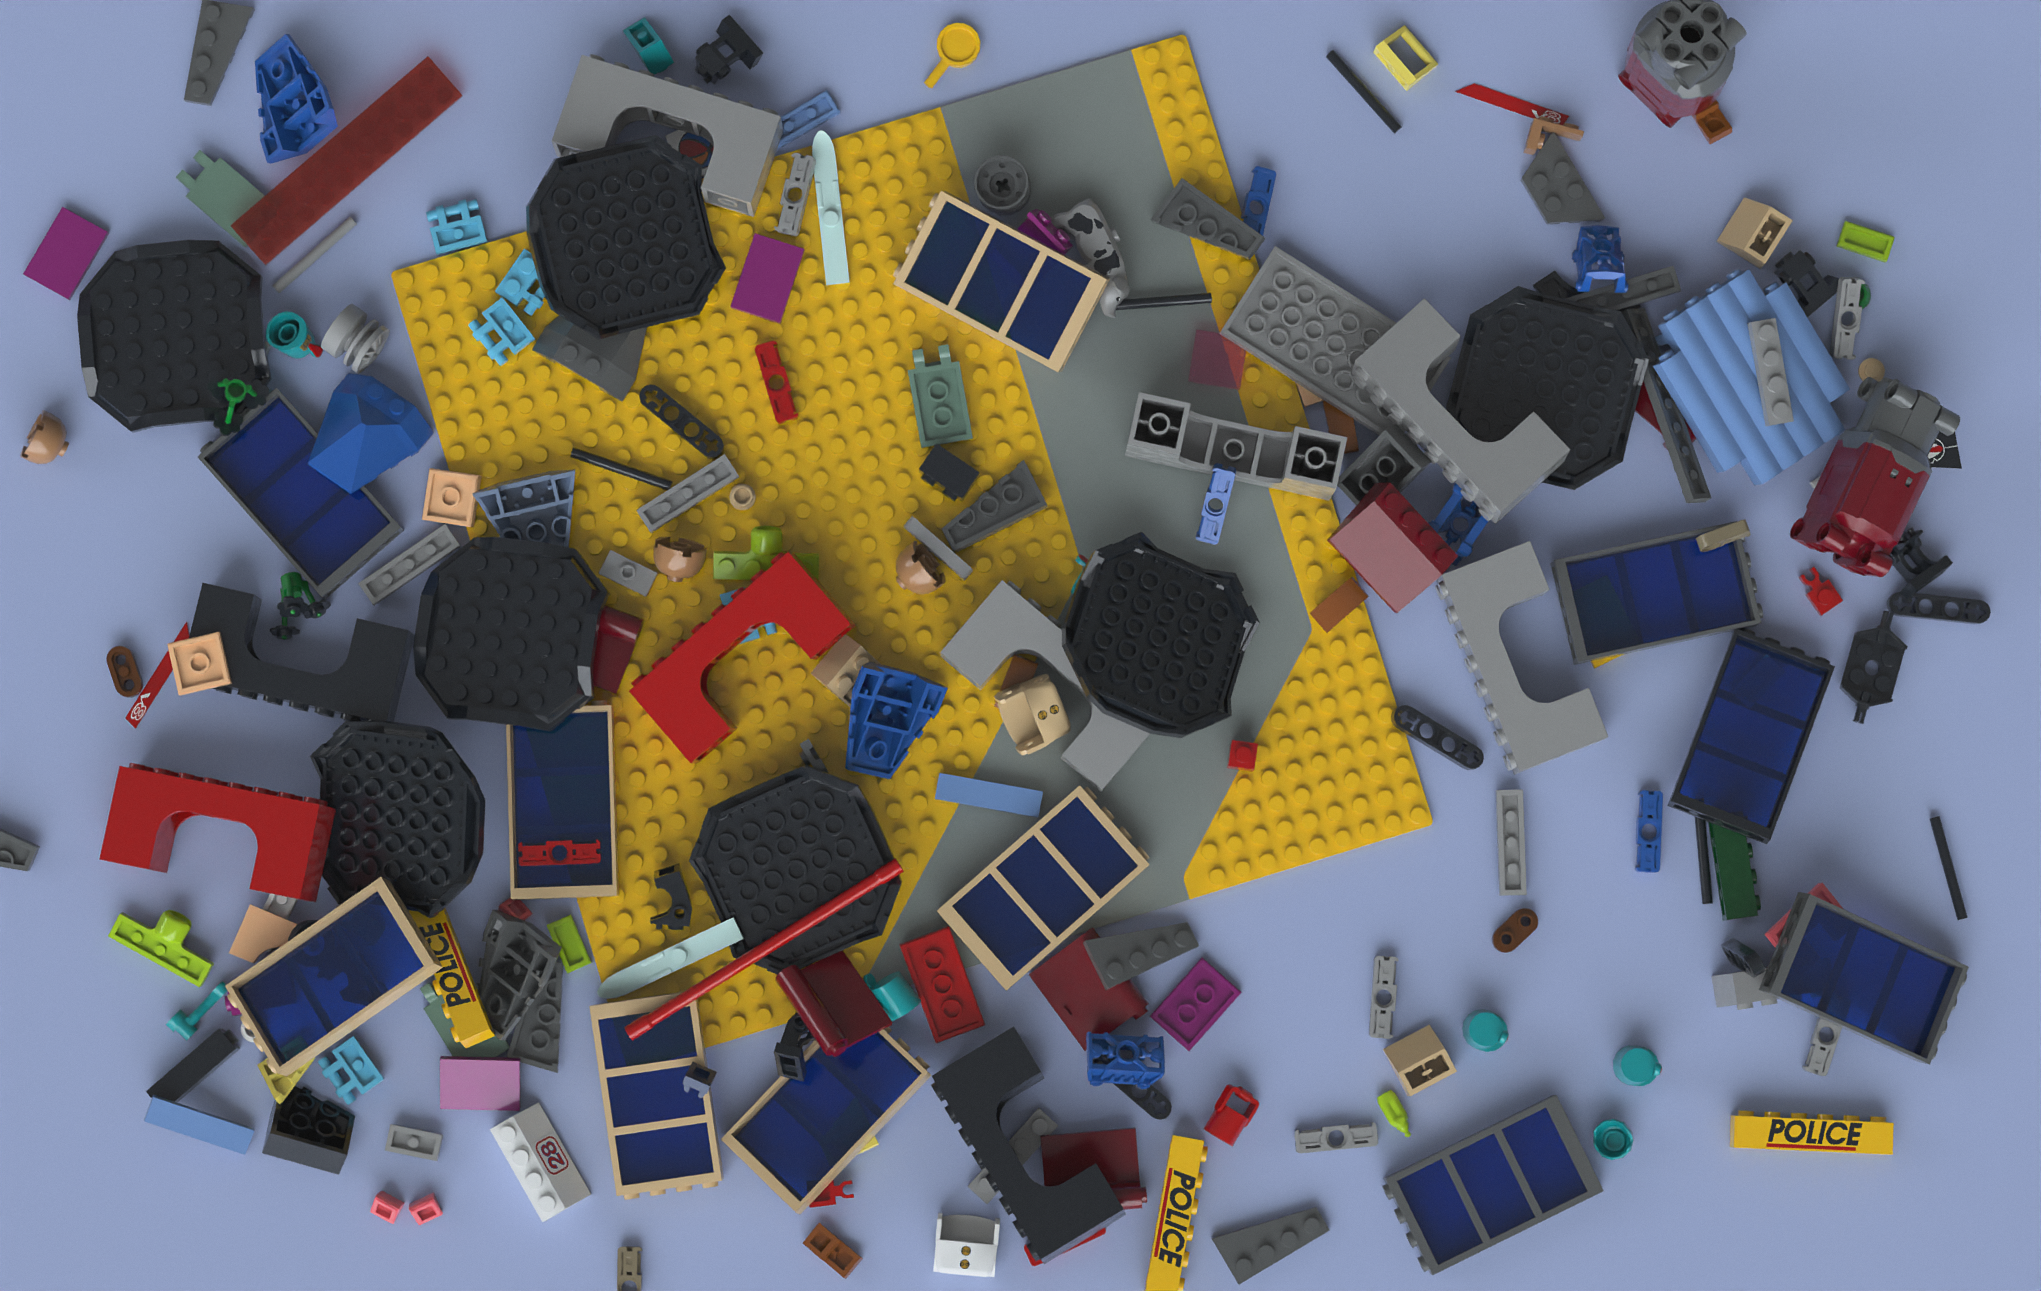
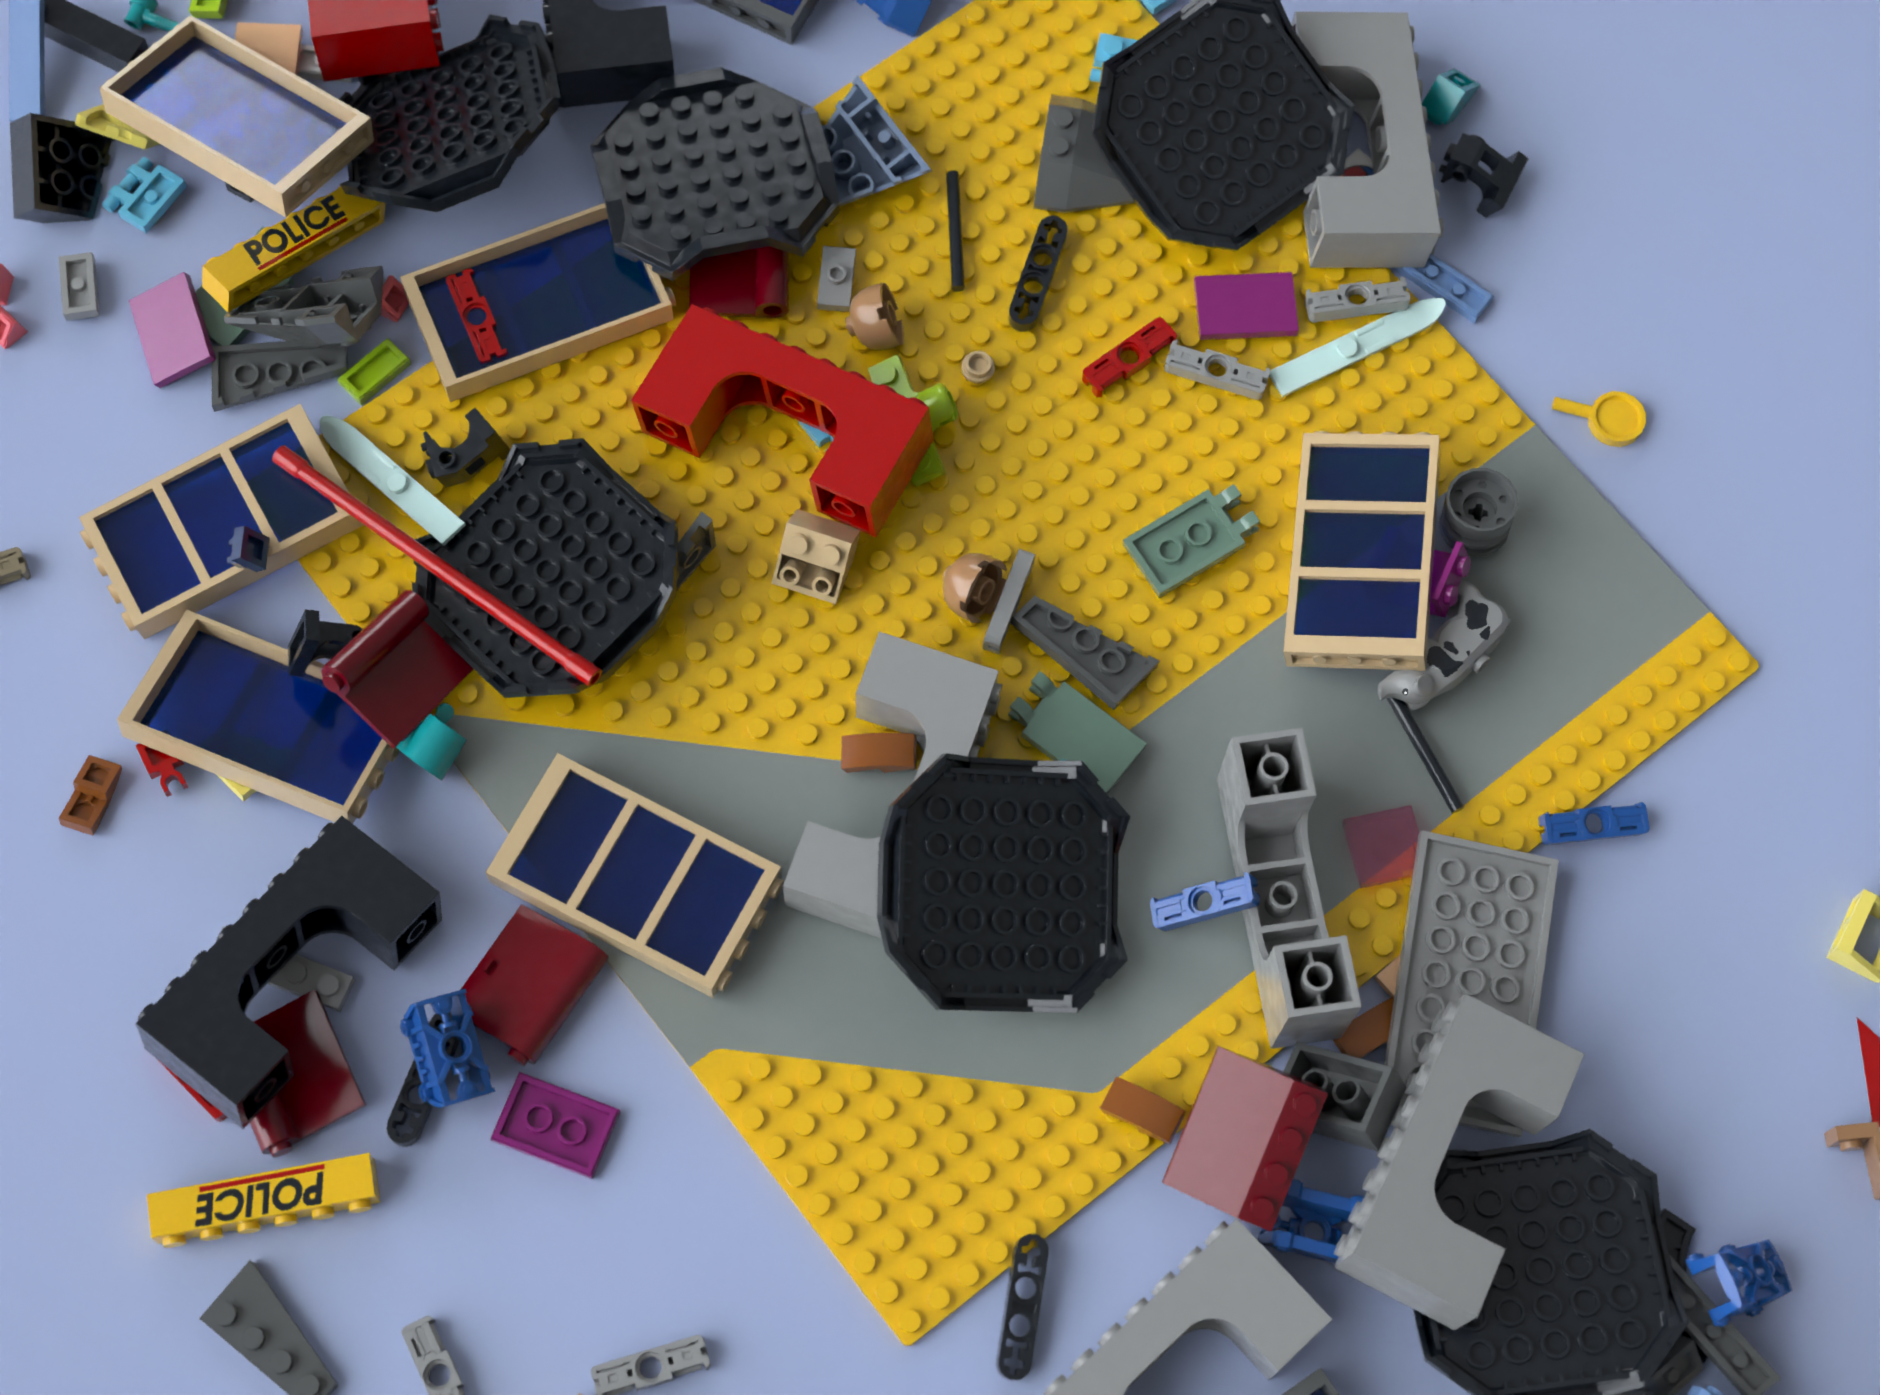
camera: 70 degrees right, 15 degrees down
(409, 564) = (753, 57): light grey plate -> none
(451, 497) = (839, 67): light nougat tile -> none
(509, 328) = (1065, 60): medium azure plate -> none
(540, 1162) = (96, 425): white slope -> none
(687, 493) = (956, 307): light grey plate -> none
(824, 310) = (1237, 379): none -> light grey piece
(887, 716) = (777, 608): blue wedge -> none
(942, 984) = (470, 802): red tile -> none
(948, 473) = (1105, 580): black piece -> none
(966, 1245) = (143, 947): white piece -> none
(988, 795) = (728, 771): medium blue tile -> none
(1033, 713) = (850, 779): tan piece -> none
(1056, 539) = (1076, 729): none -> sand green tile
(1133, 953) = (590, 1015): dark grey wing -> none
(1202, 218) = (1550, 761): dark grey wing -> none
(1227, 1123) = (411, 1221): red piece -> none
(1242, 755) = (897, 1057): red brick -> none
(1363, 91) = (1799, 904): black bar -> none
(1558, 187) = (1803, 1194): dark grey wing -> none

